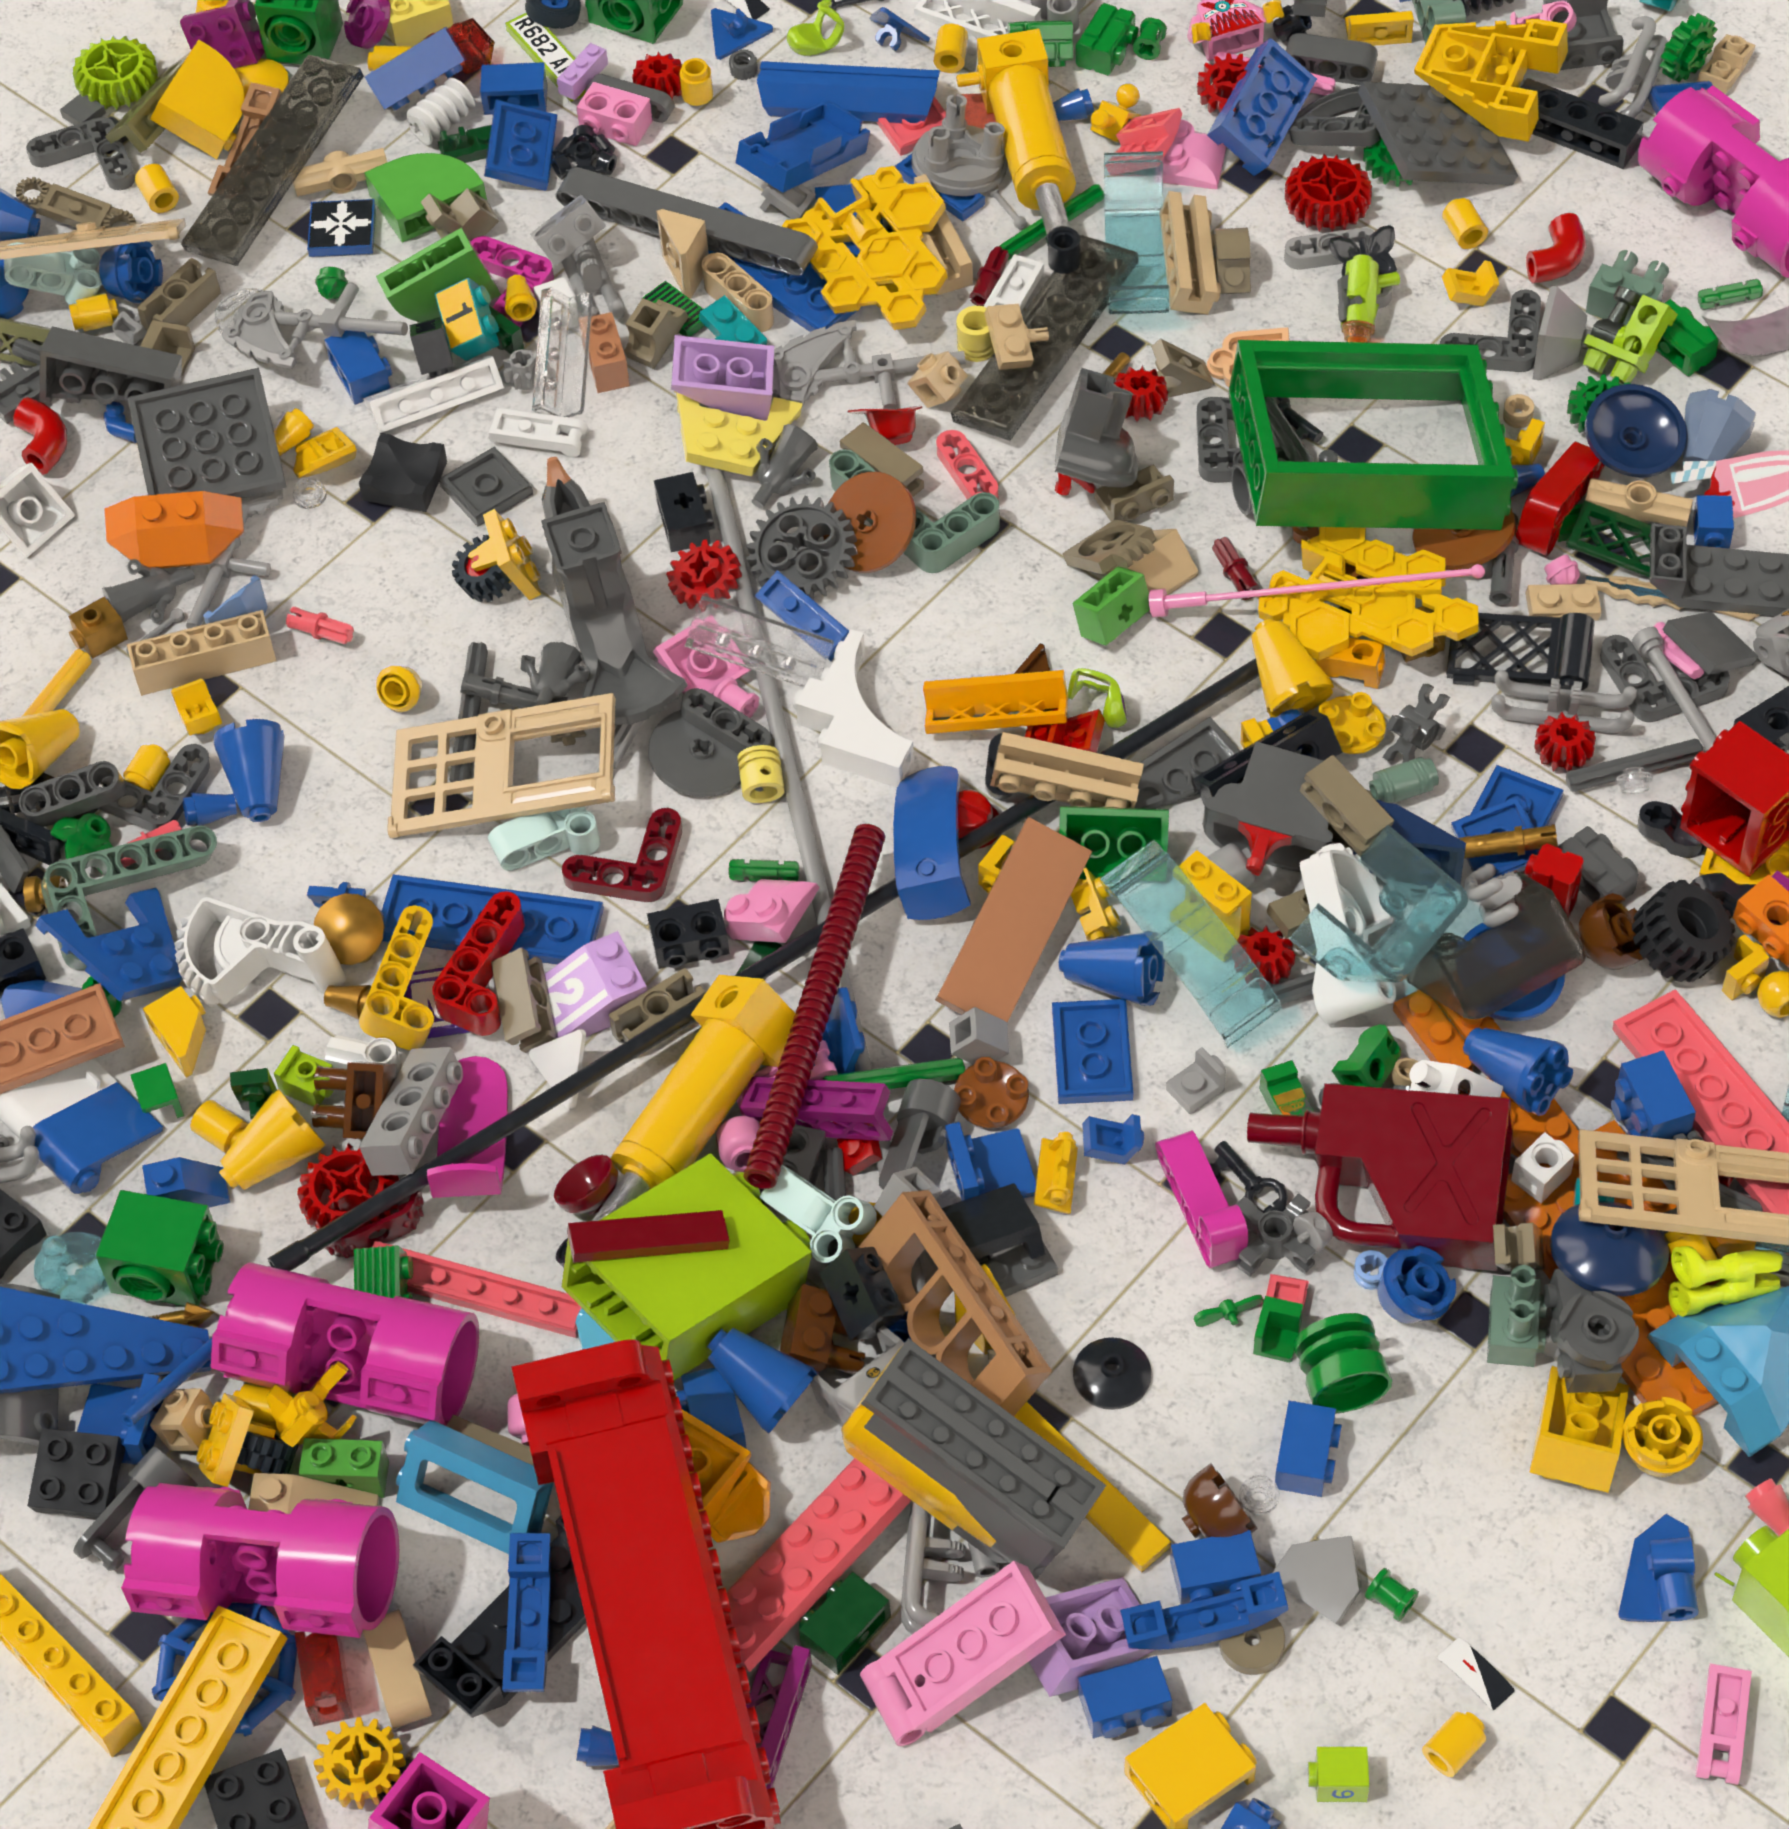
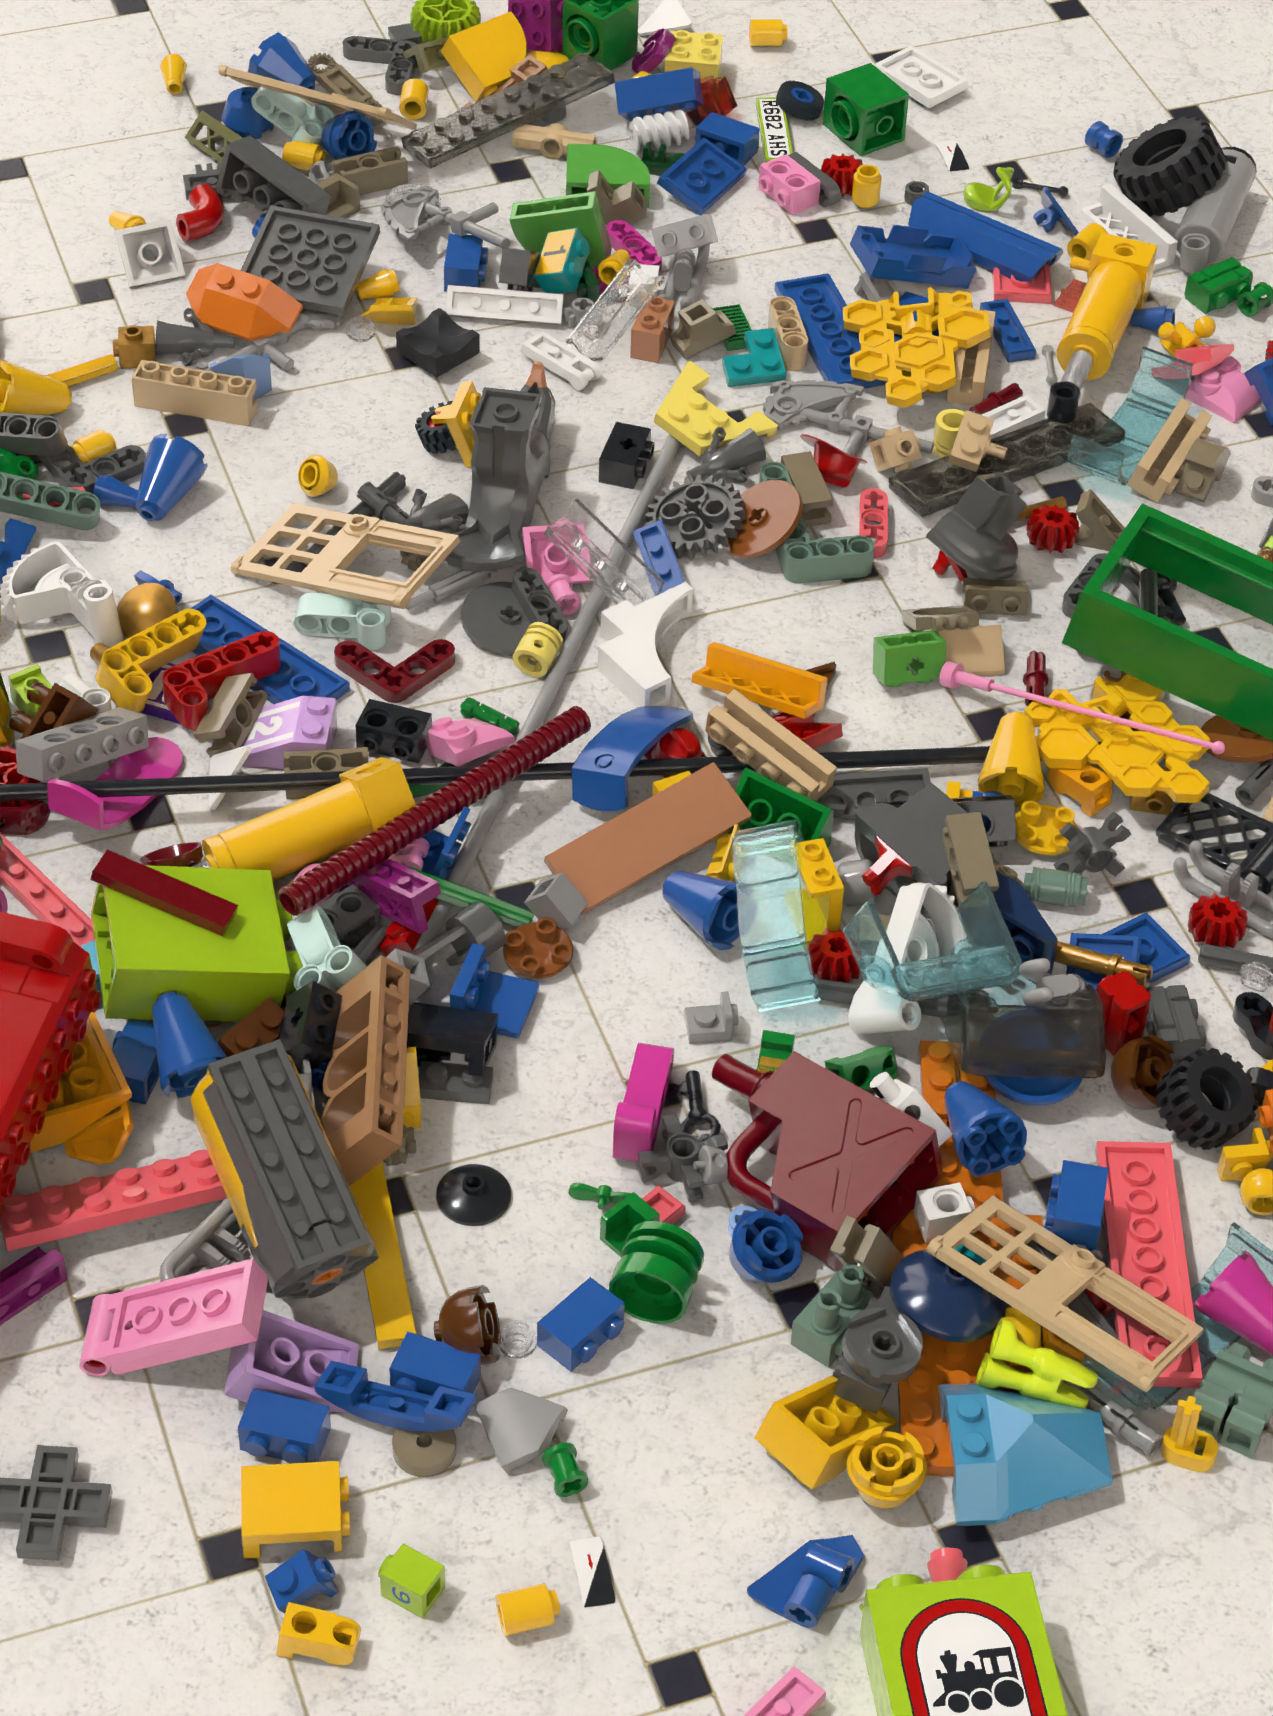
camera: 25 degrees right, 10 degrees down
(196, 707) = (161, 420): yellow bracket -> none
(319, 625) = (295, 414): coral axle -> none
(331, 282) = (487, 198): green plate -> none
(341, 227) = (527, 177): tile -> none
(485, 485) = (495, 373): dark grey tile -> none
(581, 71) = (797, 141): lavender piece -> none
(584, 151) = (746, 199): black piece -> none
(683, 248) = (767, 281): tan slope -> none
(704, 573) = (610, 499): red gear -> none
(724, 374) = (727, 375): lavender slope -> none
(725, 230) = (787, 271): dark grey beam -> none
(735, 31) = (930, 171): blue piece -> none
(844, 1622) = (111, 1258): dark green brick -> none
(961, 156) = (1035, 314): light grey piece -> none
(1037, 230) = (1091, 387): green axle -> none
(1056, 38) = (1171, 267): green brick -> none
(1056, 1173) = (543, 1029): yellow hinge -> none
(1092, 1051) = (644, 960): blue tile -> none
(1111, 1139) = (605, 1025): blue bracket -> none
(1114, 708) = (858, 726): lime piece -> none

